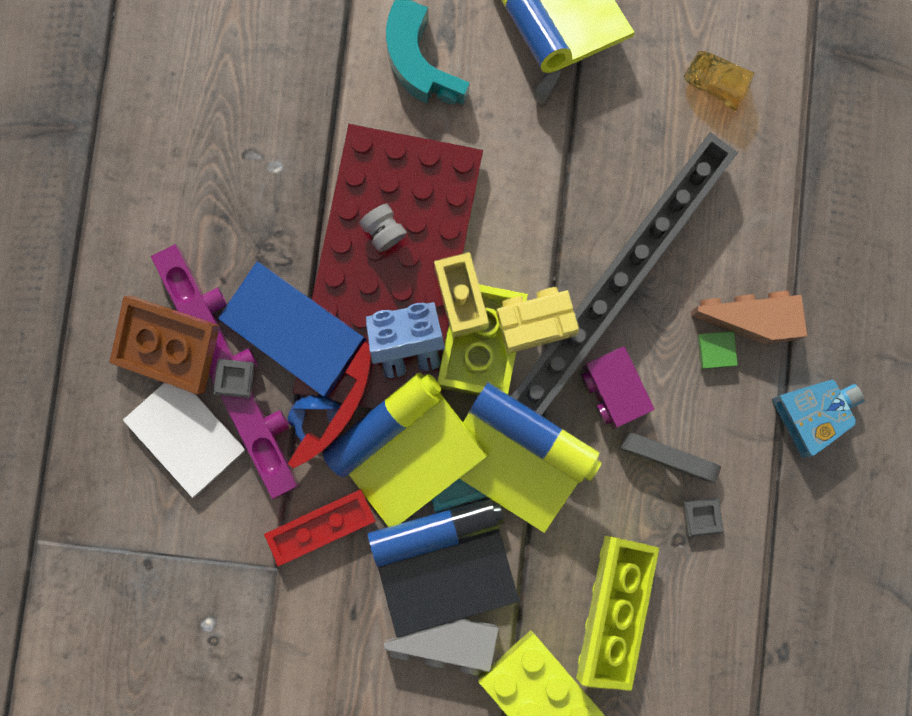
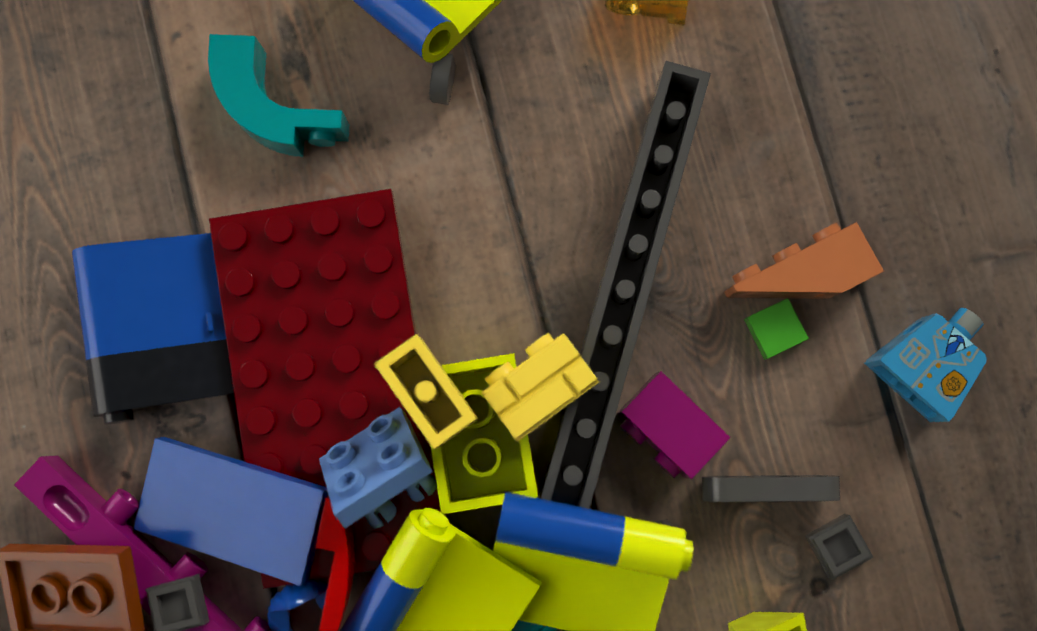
camera: 15 degrees left, 0 degrees up
(282, 182) = (151, 324): none -> blue door
(382, 228) = (297, 337): light grey wheel -> none

